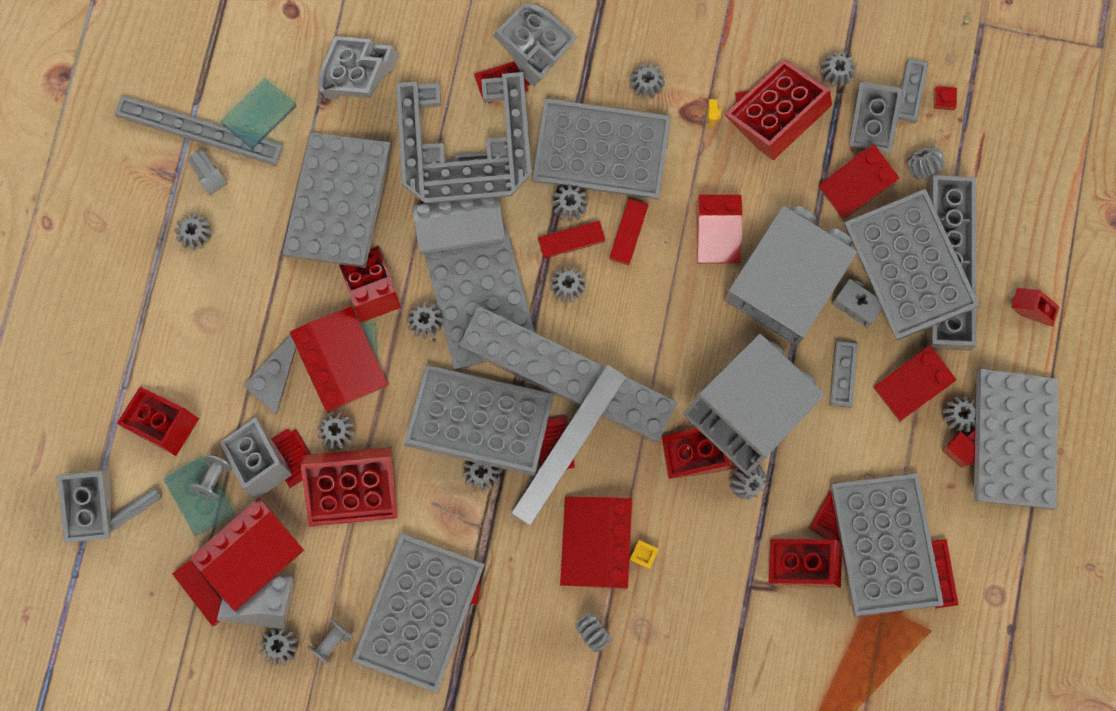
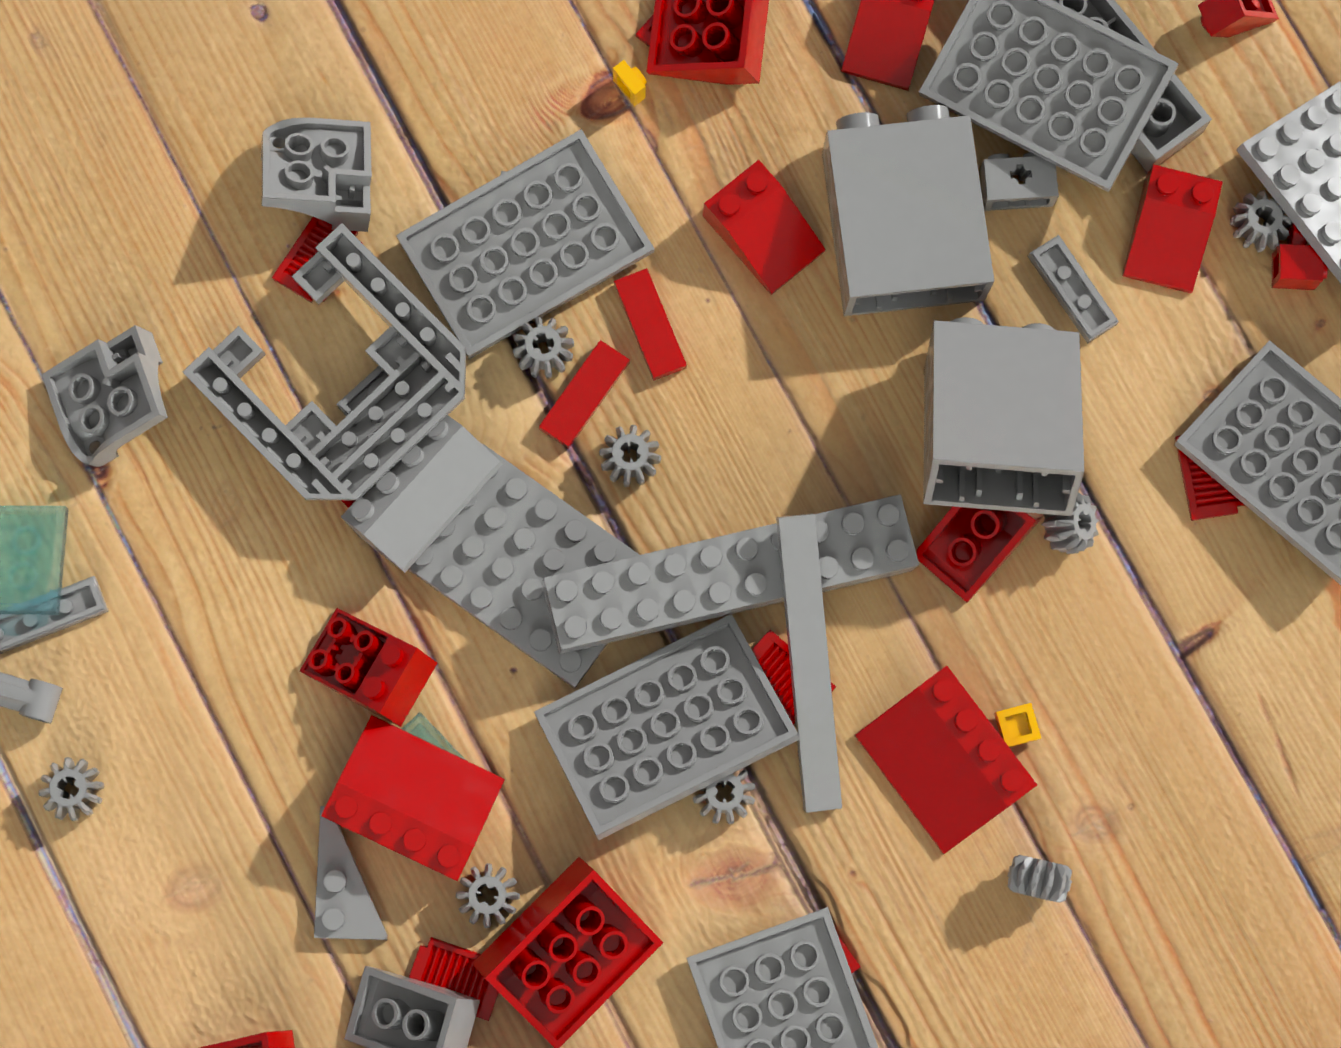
camera: 40 degrees left, 0 degrees up
(337, 200) = (232, 589): light grey plate -> none
(433, 320) = (470, 660): light grey gear -> none
(654, 85) = (505, 119): light grey gear -> none
(805, 562) = (1225, 568): red slope -> none

